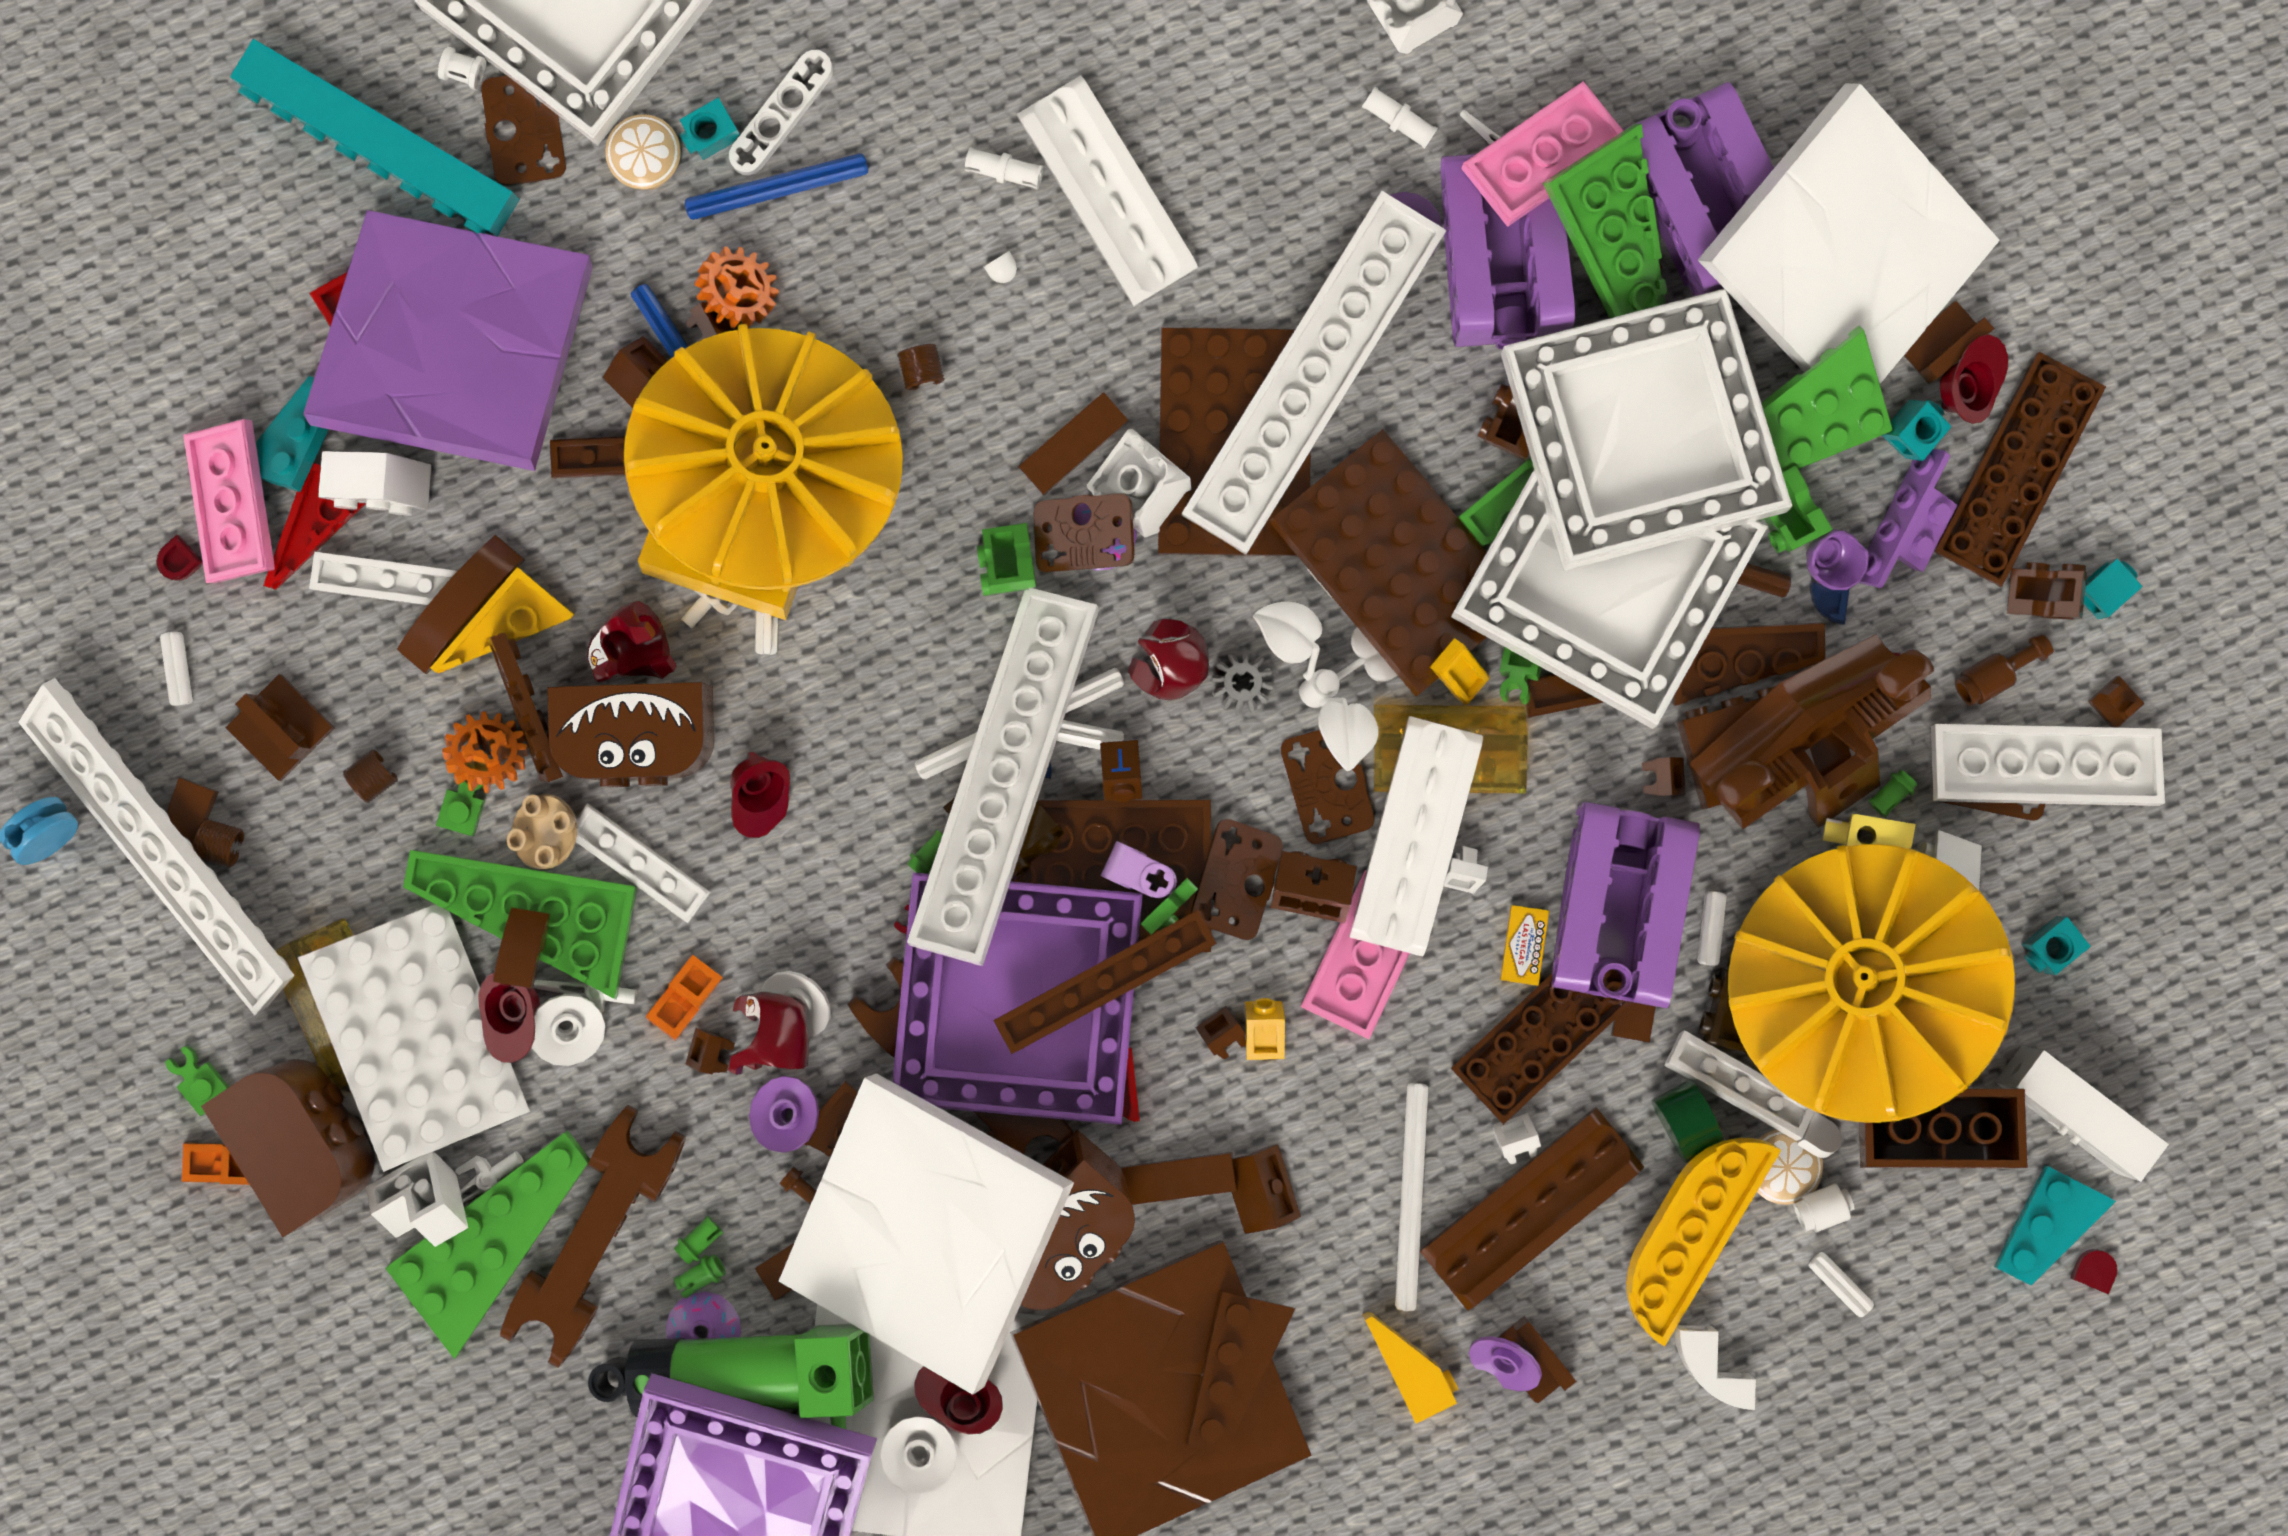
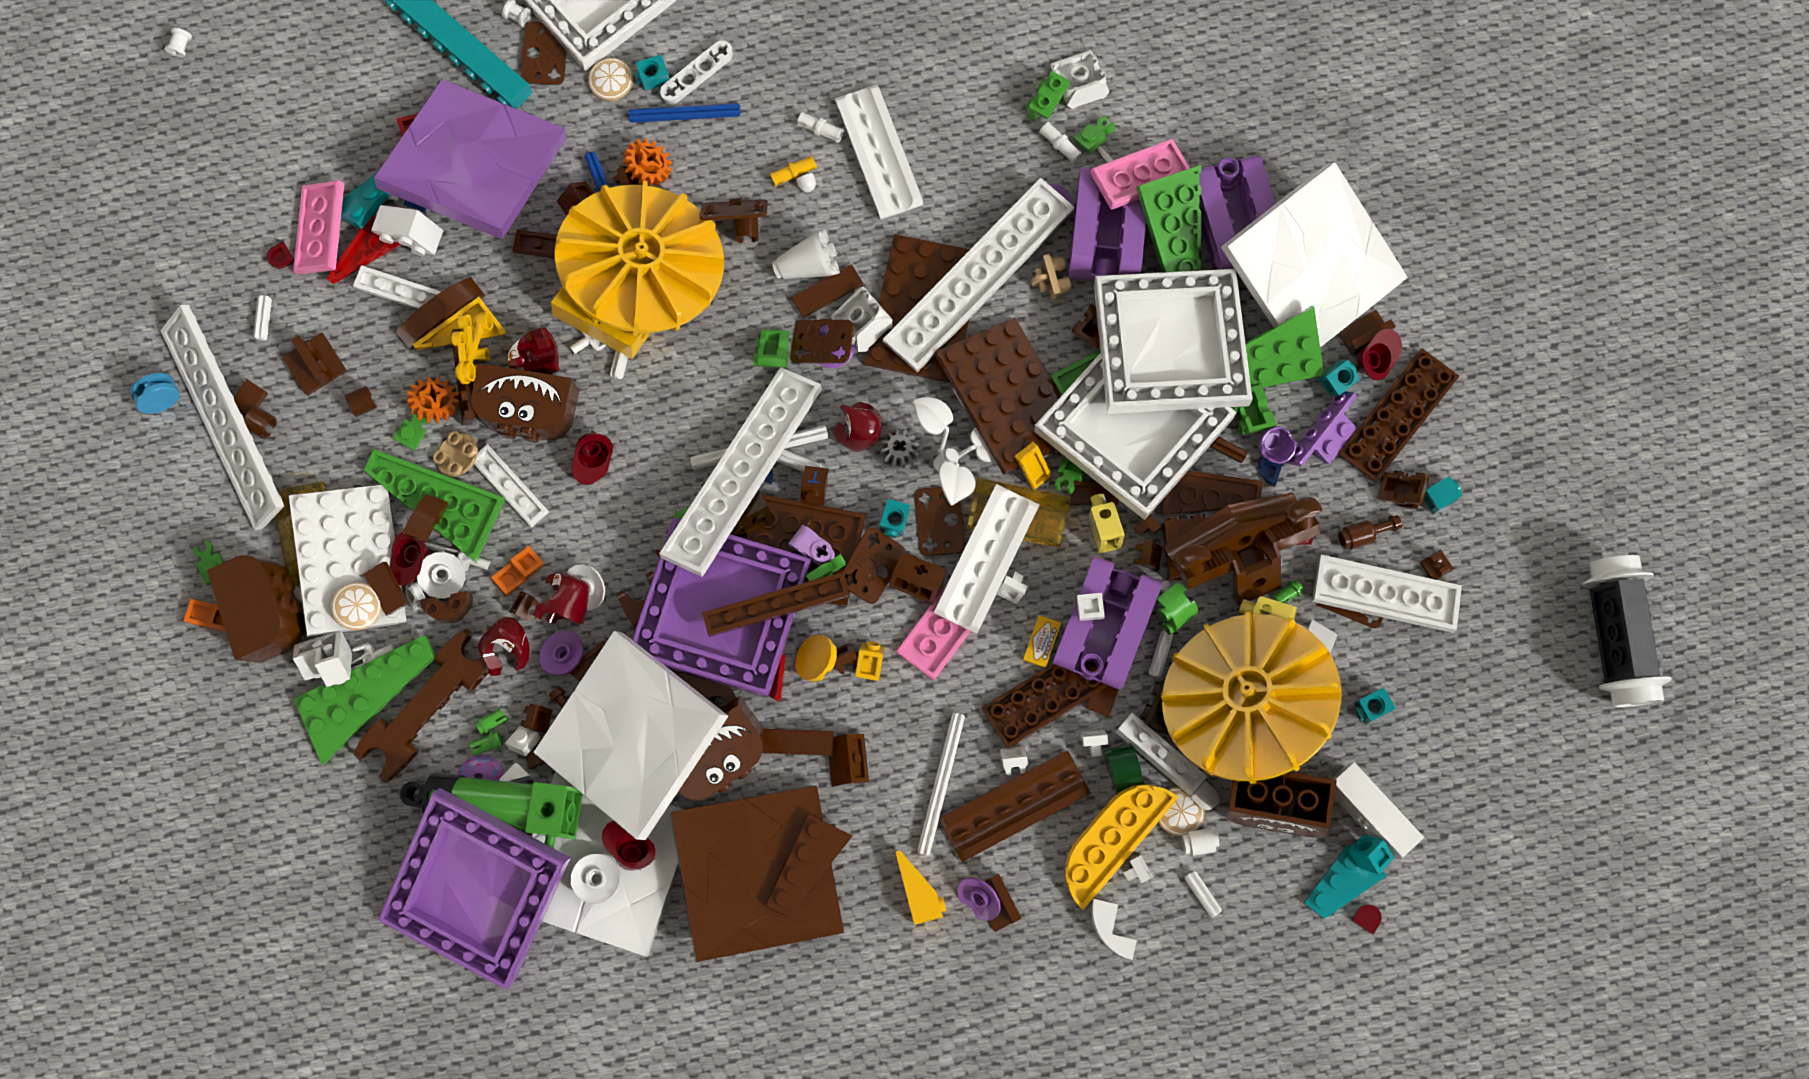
camera: 10 degrees right, 10 degrees down
(448, 1111) = (356, 606): none -> dish
(487, 1072) = (386, 588): none -> reddish brown tile
(532, 697) = (466, 370): none -> yellow plant
(534, 1070) = (414, 594): none -> white tile
(586, 1088) = (449, 611): none -> reddish brown cylinder
(694, 1109) = (512, 637): none -> dark red piece
(756, 1262) = (522, 740): none -> white plate
(756, 1316) = (515, 774): none -> white slope
(770, 1222) = (537, 718): none -> reddish brown tile
(887, 349) = (723, 210): none -> reddish brown axle
(976, 251) = (794, 170): none -> yellow pin
(1033, 400) = (808, 259): none -> white cone
(1180, 1045) = (815, 658): none -> yellow tile
(1267, 782) = (894, 508): none -> teal brick
(1368, 45) = (1048, 96): none -> bright green bracket
(1439, 365) = (1051, 267): none -> tan hips
(1451, 97) = (1093, 137): none -> bright green plate
(1593, 758) = (1105, 525): none -> light yellow torso
(1597, 892) = (1090, 606): none -> white plate
(1634, 1084) = (1094, 740): none -> white tile
(1648, 736) = (1145, 525): none -> reddish brown tile
(1726, 859) = (1175, 608): none -> bright green cylinder
(1737, 1270) = (1139, 870): none -> white tile
(2089, 1180) = (1371, 854): none -> teal brick

